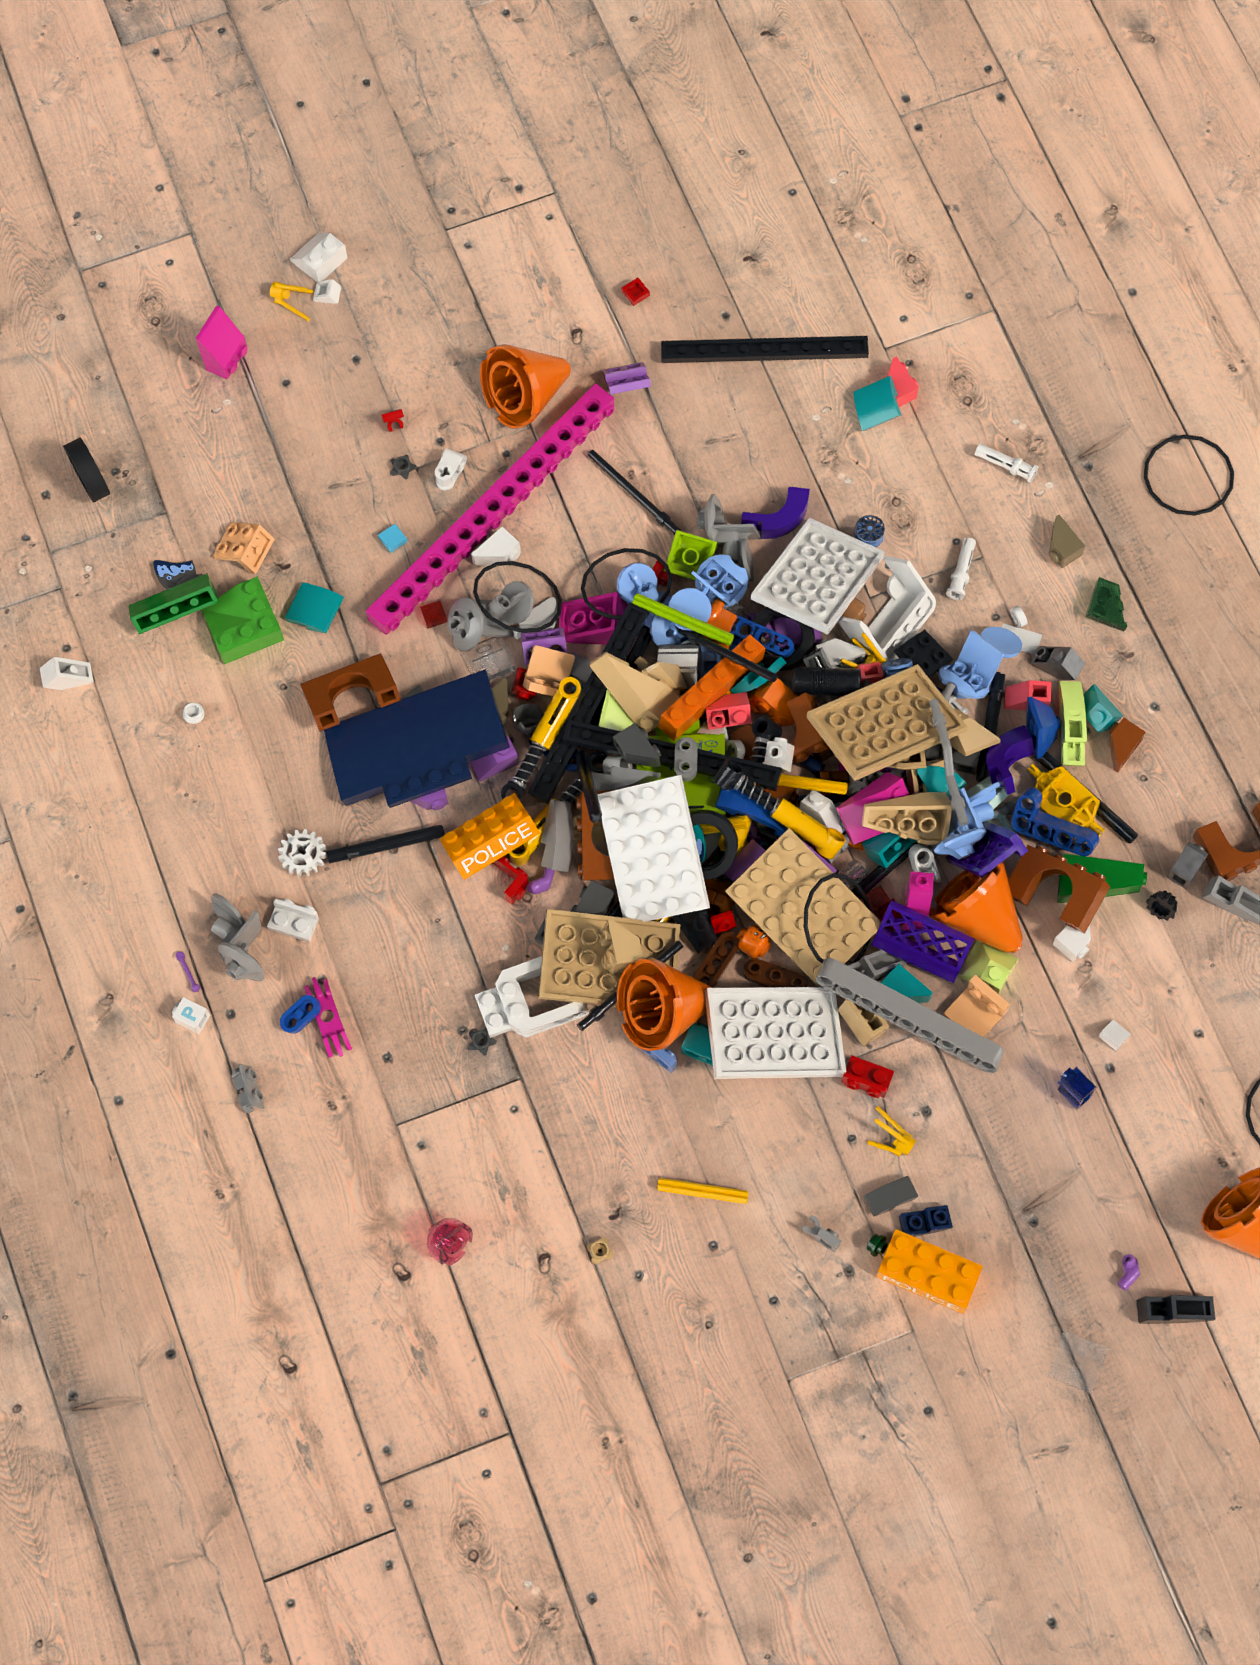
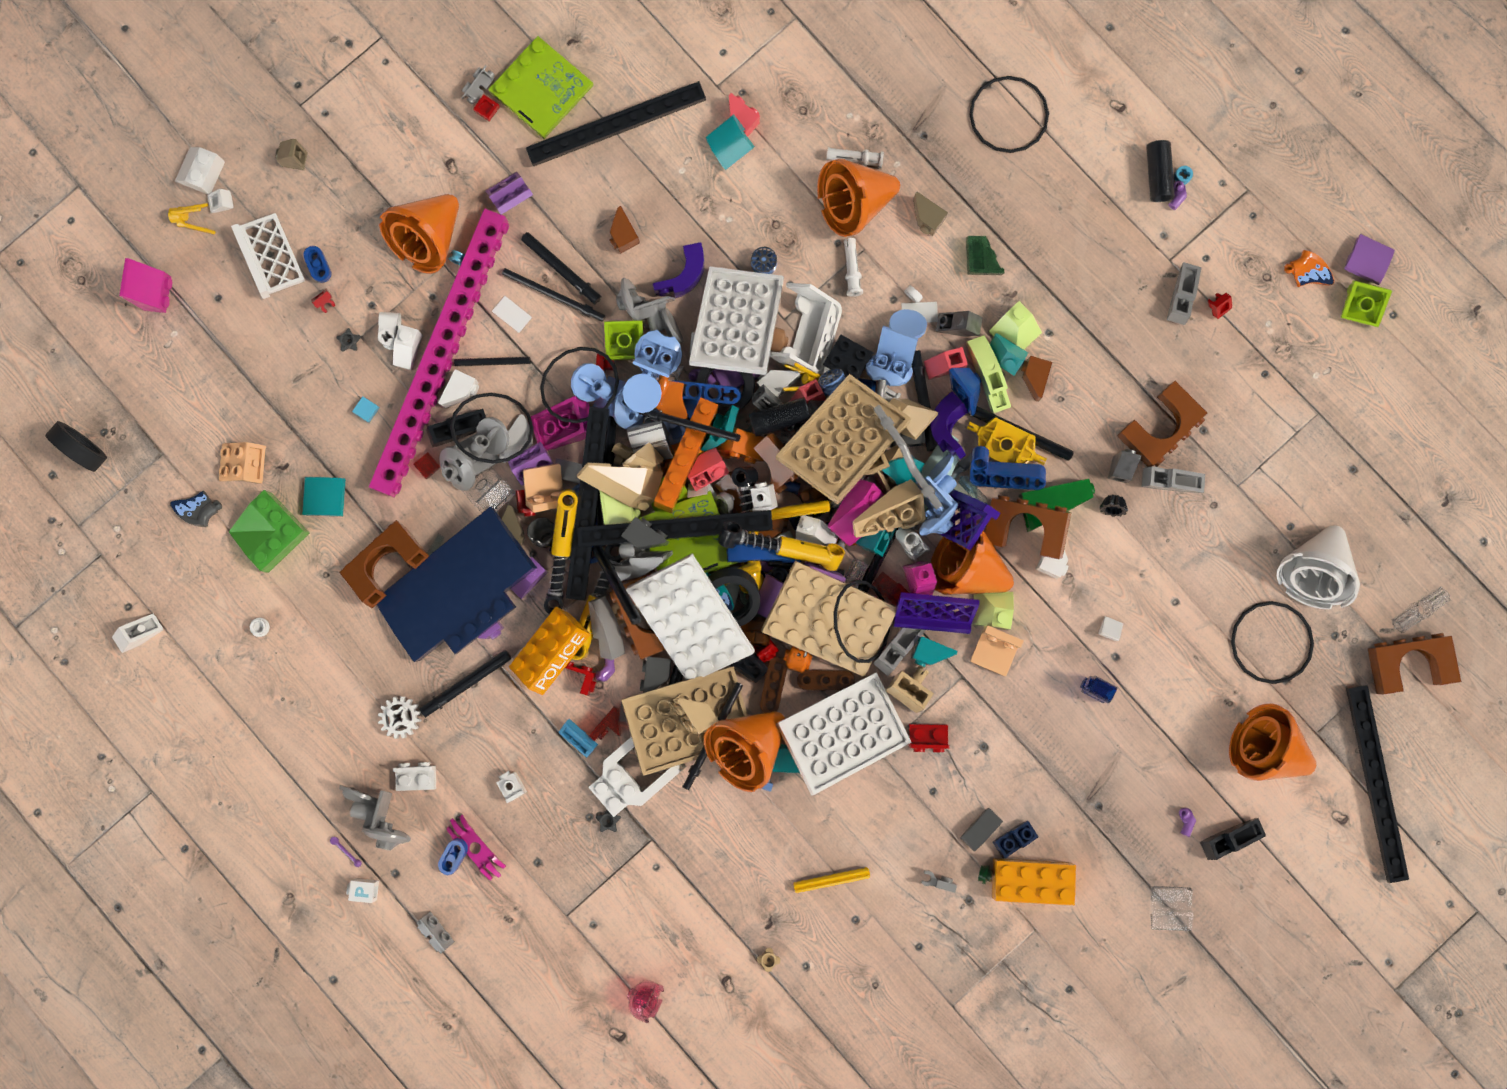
camera: 20 degrees left, 15 degrees up
(173, 603) = (202, 539): green brick -> none
(337, 363) = (253, 262): none -> white fence
(393, 972) = (517, 790): none -> white brick
(401, 384) = (318, 265): none -> blue plate
(418, 270) = (291, 154): none -> dark tan slope
(460, 490) = (406, 347): none -> white slope
(483, 941) = (577, 738): none -> dark azure plate
(489, 585) = (464, 426): none -> black slope
(524, 934) = (612, 721): none -> clear red slope
(543, 535) = (492, 361): none -> black bar
(547, 422) = (457, 257): none -> medium azure bush
(582, 497) = (511, 314): none -> white sticker
(628, 270) = (472, 90): none -> light grey hinge
(668, 495) = (583, 287): none -> black axle
(683, 619) = (640, 405): lime axle -> none
(686, 758) = (688, 530): light grey plate -> none
(700, 290) = (541, 87): none -> lime plate
(730, 455) = (622, 232): none -> dark orange slope
(903, 1141) = (975, 782): yellow plant -> none
(909, 1015) = (946, 679): light grey beam -> none
(990, 493) = (853, 195): none -> orange cone
(1121, 685) = (1017, 326): none -> yellowish green slope

